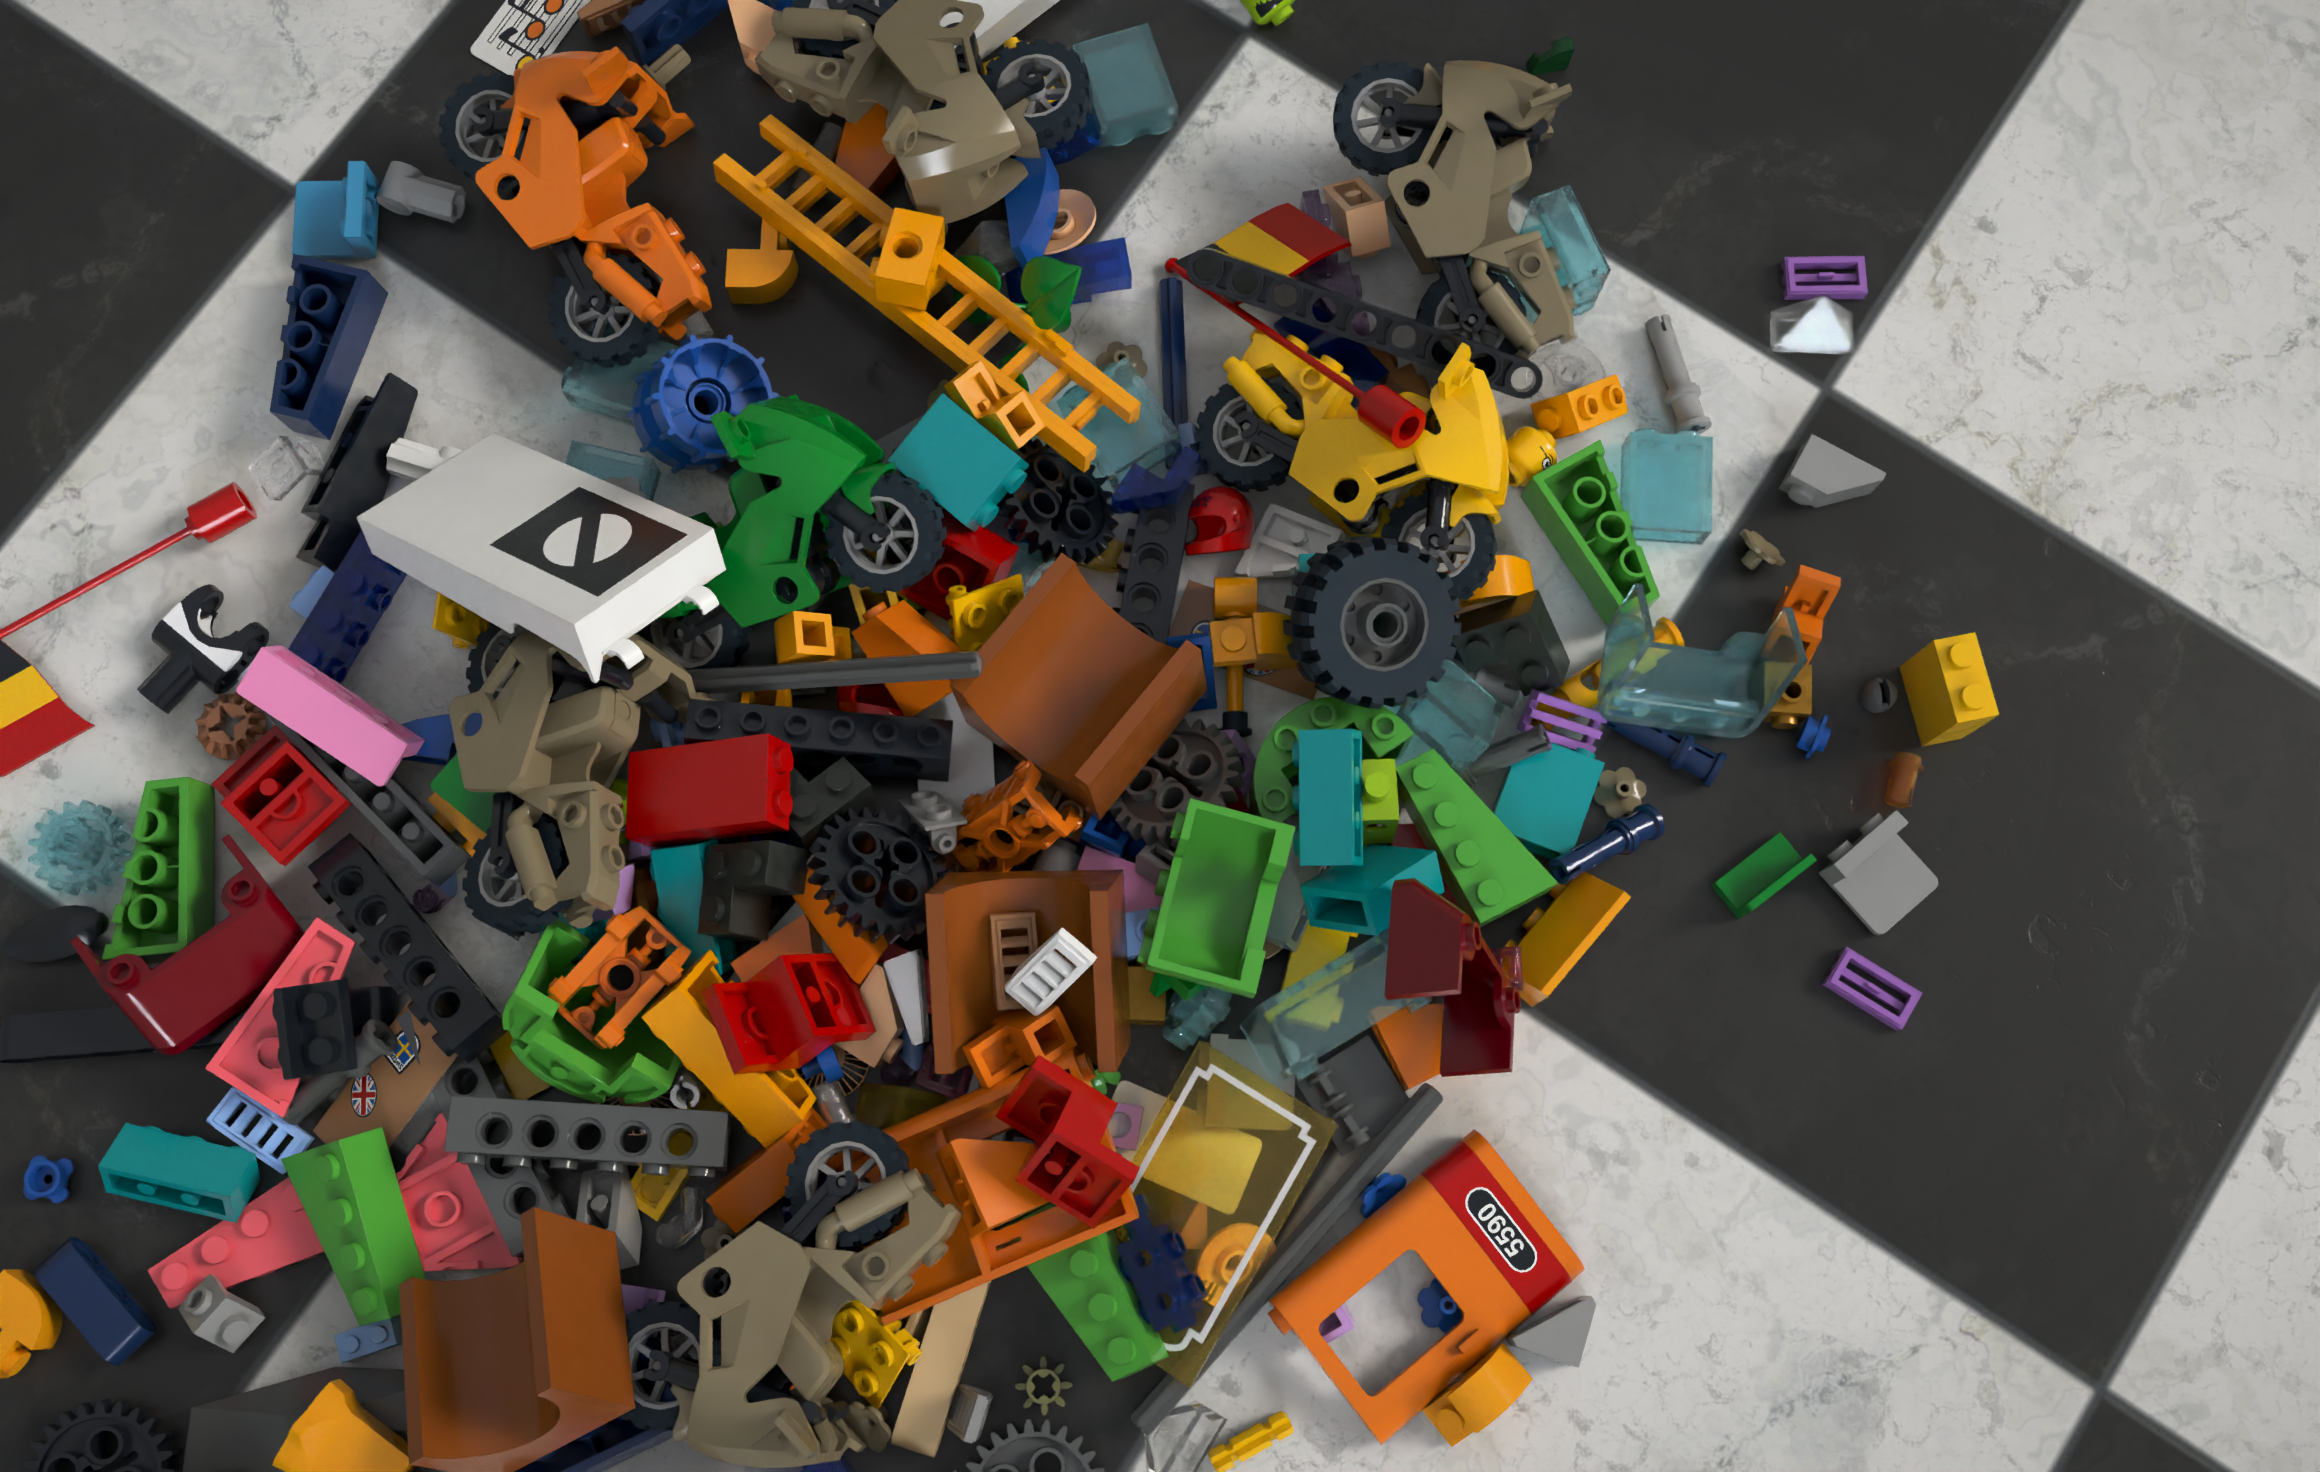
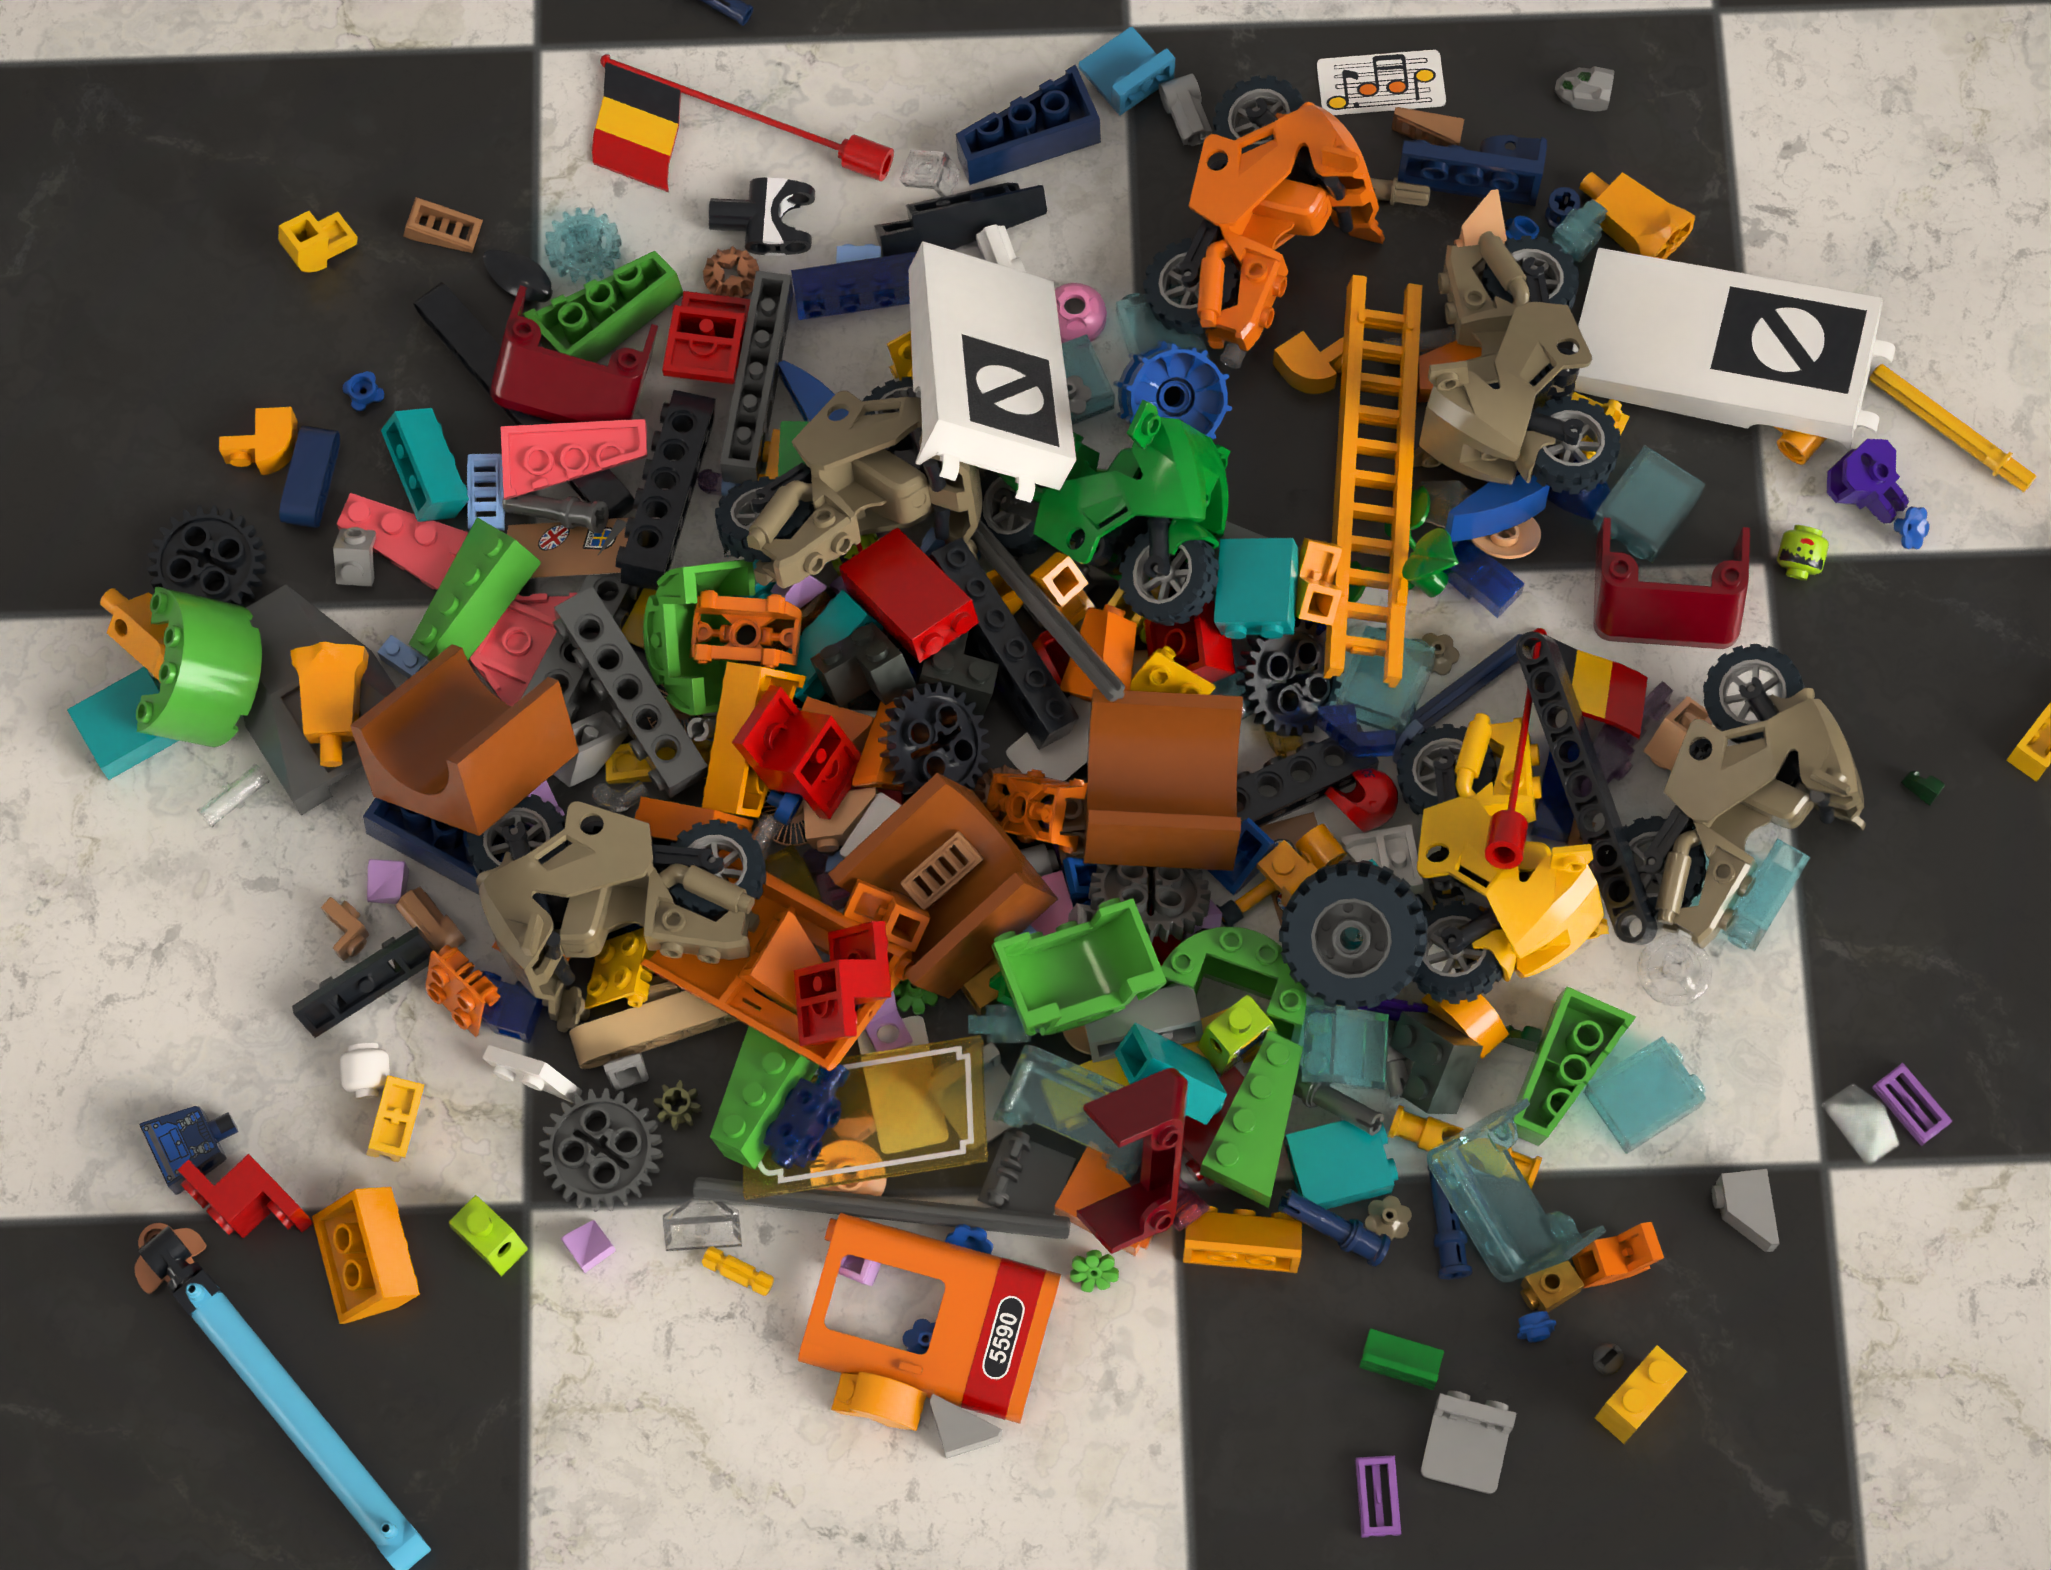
camera: 60 degrees right, 5 degrees down
(314, 1029) = (573, 472): black bracket -> none
(327, 714) = (781, 325): bright pink panel -> none
(558, 429) = (1089, 321): none -> bright pink piece
(908, 279) = (1367, 463): light orange brick -> none
(934, 818) = (1006, 755): light grey hinge -> none
(1047, 974) = (943, 889): white slope -> none
(1214, 170) = (1666, 611): none -> dark red windscreen
(1329, 797) = (1207, 994): teal brick -> none
(1489, 1095) = (1094, 1270): none -> bright green plant
(1529, 454) = (1588, 975): yellow head -> none
(1544, 548) = (1526, 1039): none -> dark green tile
(1581, 408) = (1658, 993): light orange bracket -> none
(1590, 731) = (1412, 1163): medium lavender tile -> none
(1681, 393) = (1730, 1058): light grey pin -> none
(1759, 550) = (1651, 1195): dark tan plant -> none
(1903, 779) = (1554, 1415): clear orange pin -> none

